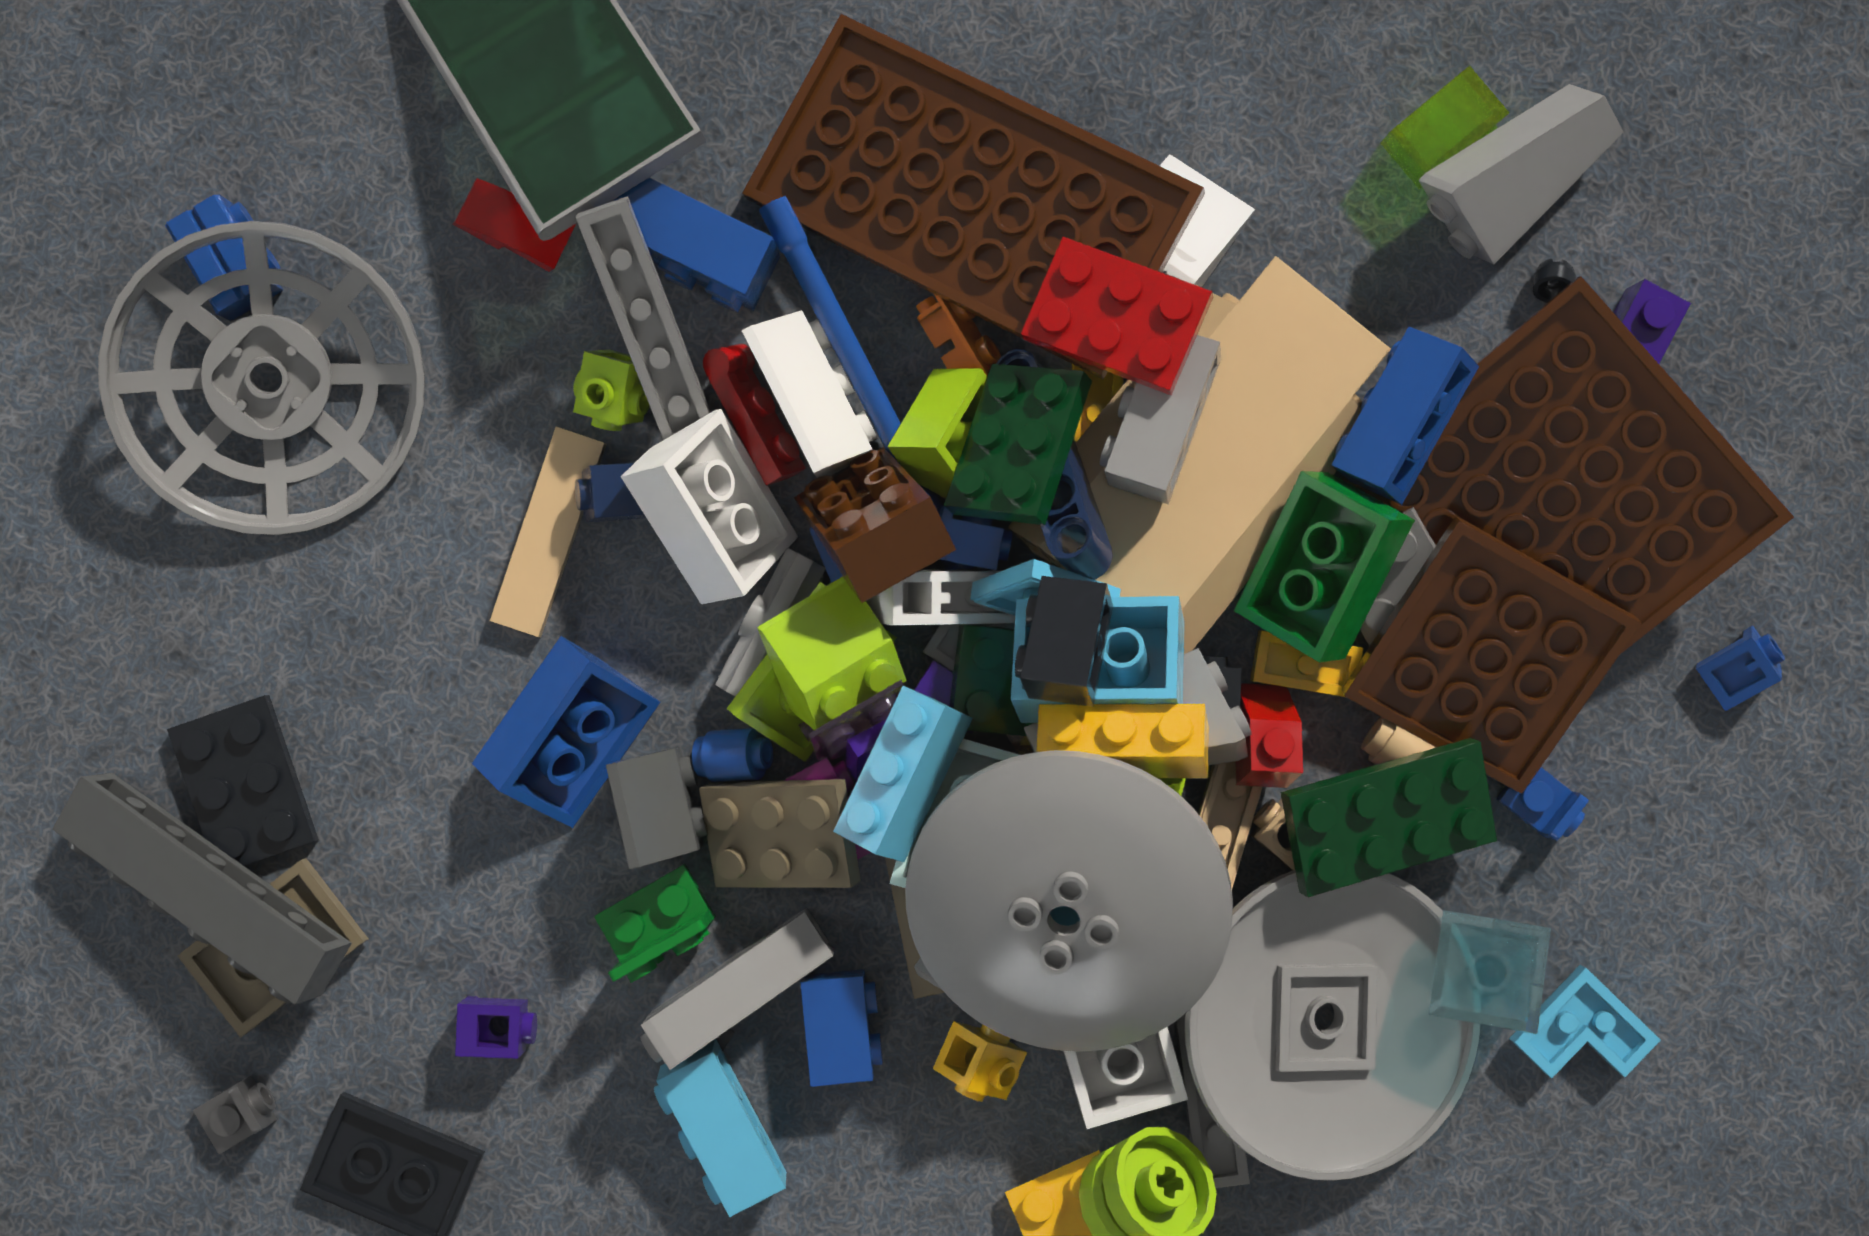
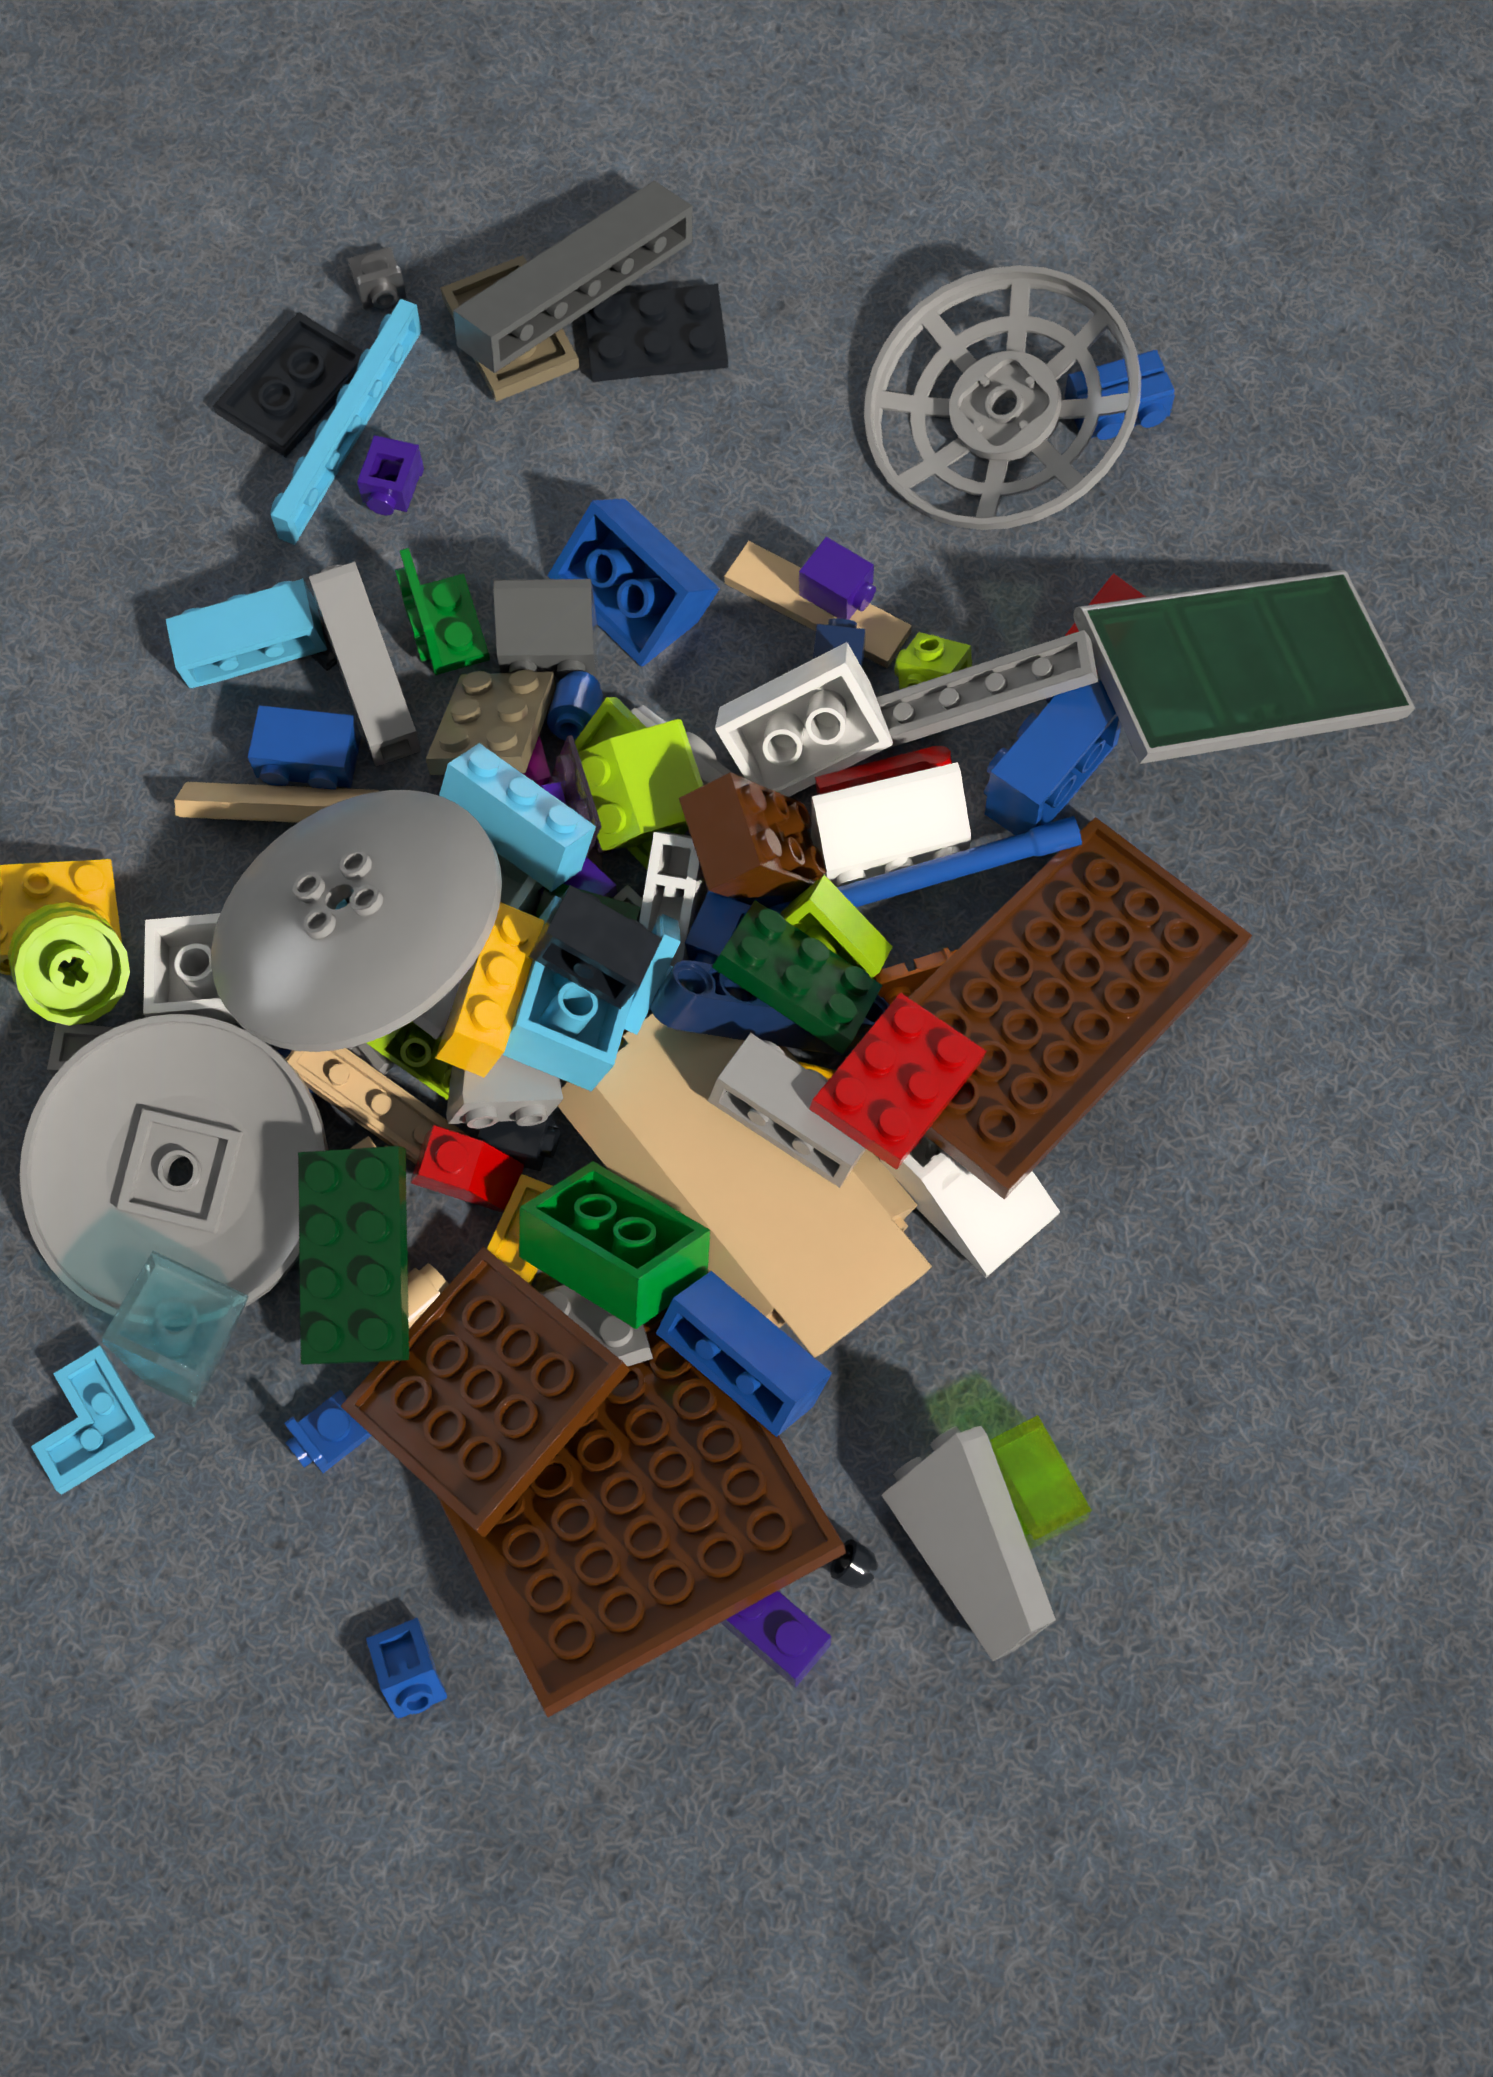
camera: 105 degrees right, 20 degrees down
(412, 1091) = (342, 429): none -> medium azure plate
(529, 509) = (837, 580): none -> dark purple brick
(906, 1039) = (256, 801): none -> tan tile
(979, 1061) = (231, 849): yellow brick -> none

